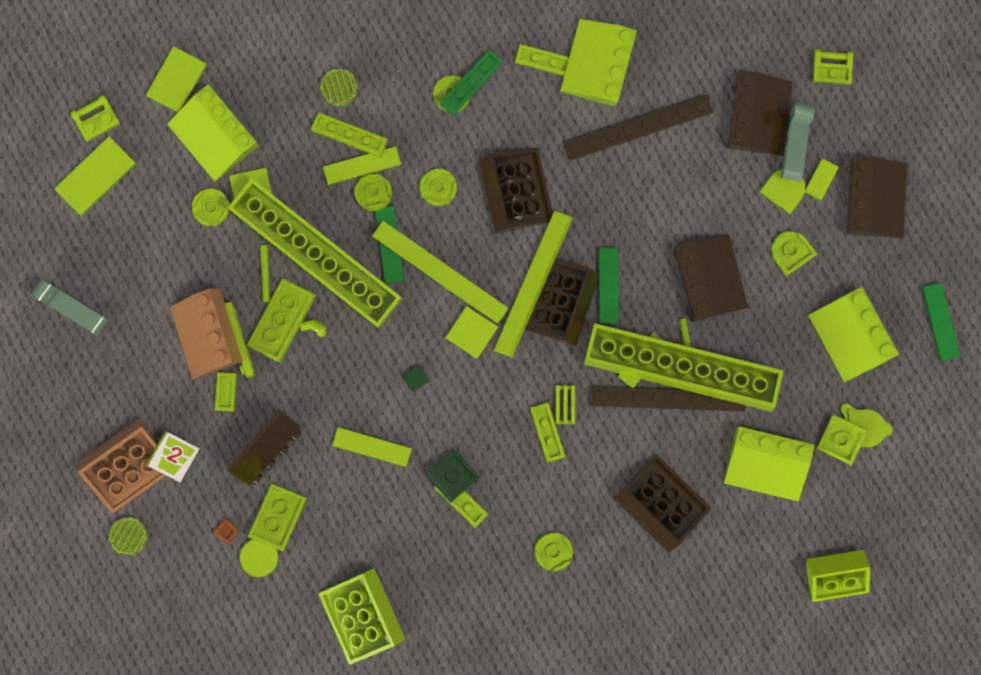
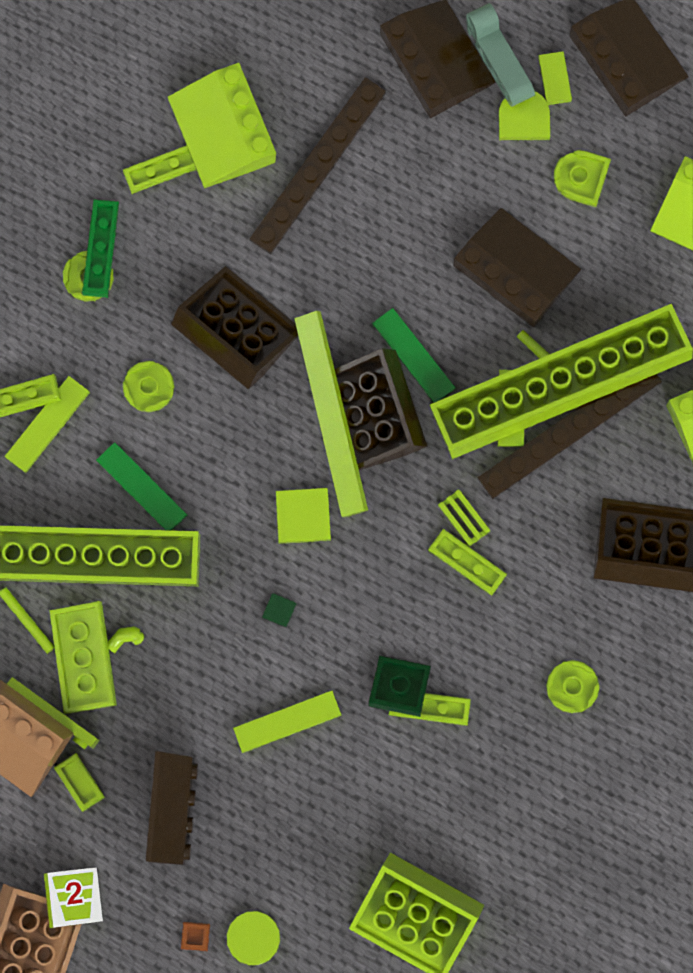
camera: 30 degrees left, 5 degrees down
(277, 517) = (240, 878): lime tile -> none
(373, 192) = (81, 443): lime tile -> none
(440, 272) = (219, 476): lime tile -> none

